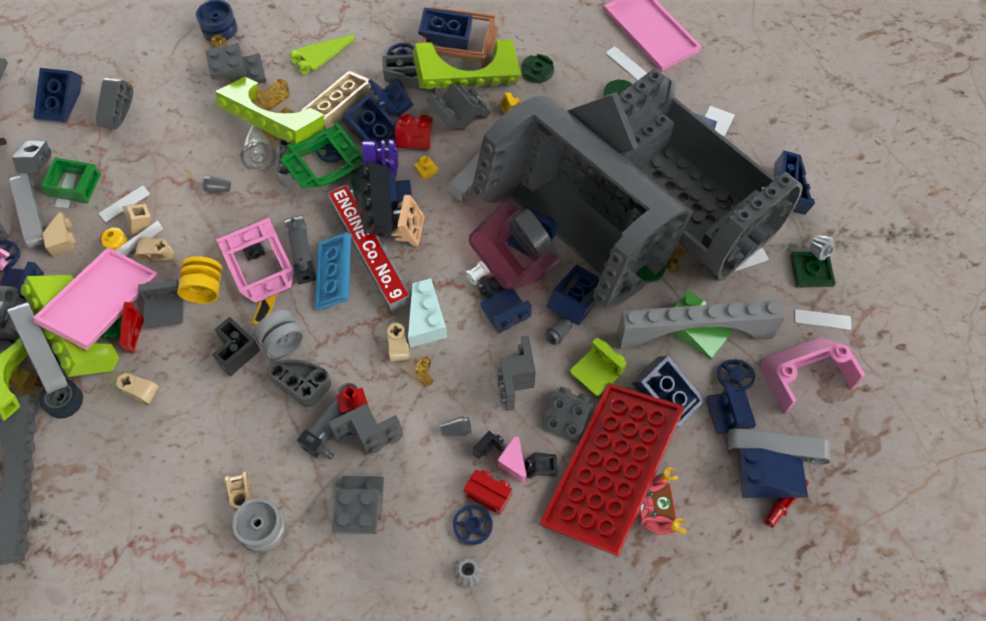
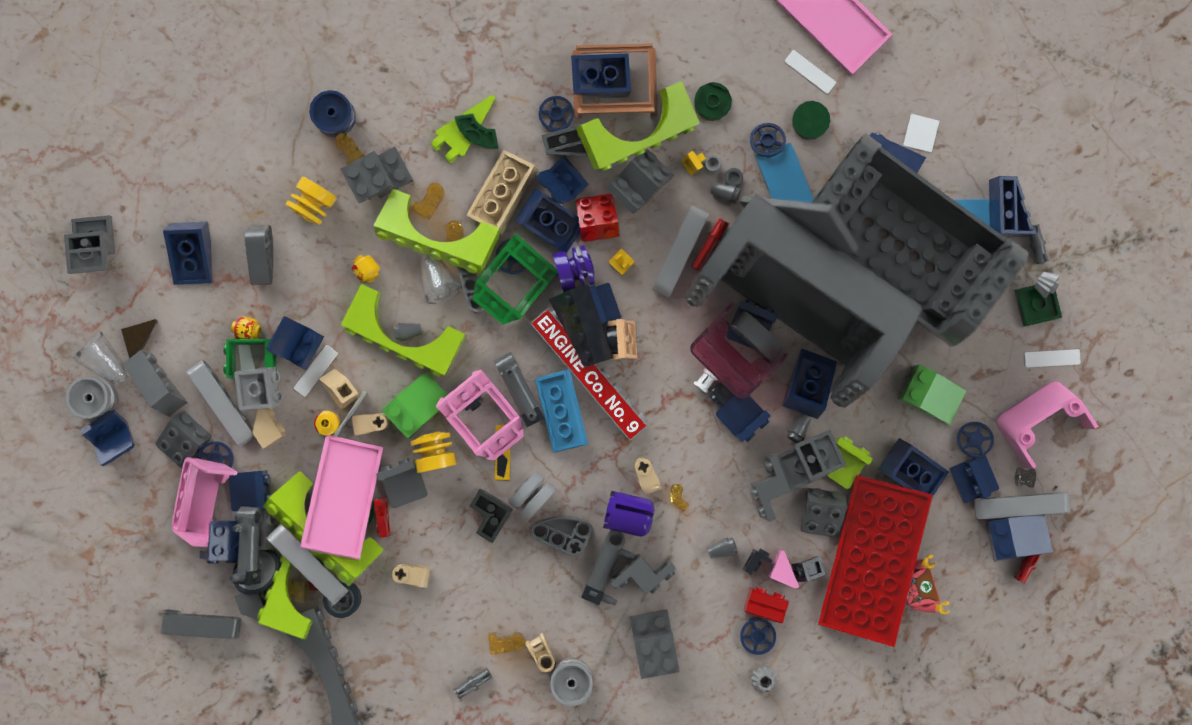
camera: 15 degrees left, 25 degrees up
(31, 156) = (196, 350): dark grey brick -> none
(63, 194) = (258, 388): none -> light grey plate
(78, 154) = (246, 328): none -> yellow head
(111, 170) = (295, 342): none -> dark blue bracket
(157, 510) = (473, 683): none -> dark grey pin
(173, 72) = (311, 200): none -> yellow wheel
(198, 240) = (415, 405): none -> bright green slope
(199, 132) = (365, 268): none -> yellow head
(205, 475) = (506, 643): none -> clear yellow leg
(234, 207) = (363, 319): none -> lime arch
(330, 55) = (476, 133): none -> dark green tile
(351, 399) = (622, 548): red bracket -> none
(368, 370) = (629, 514): none -> dark purple cylinder
(426, 318) = (666, 439): light aqua wedge -> none
(565, 351) = (811, 460): none -> dark grey bracket
(577, 98) = (767, 140): none -> dark blue wheel
(756, 318) = (938, 401): light grey arch -> none
(784, 419) = (1025, 477): none -> clear smoke wheel
(816, 220) = (1038, 246): none -> dark grey pin

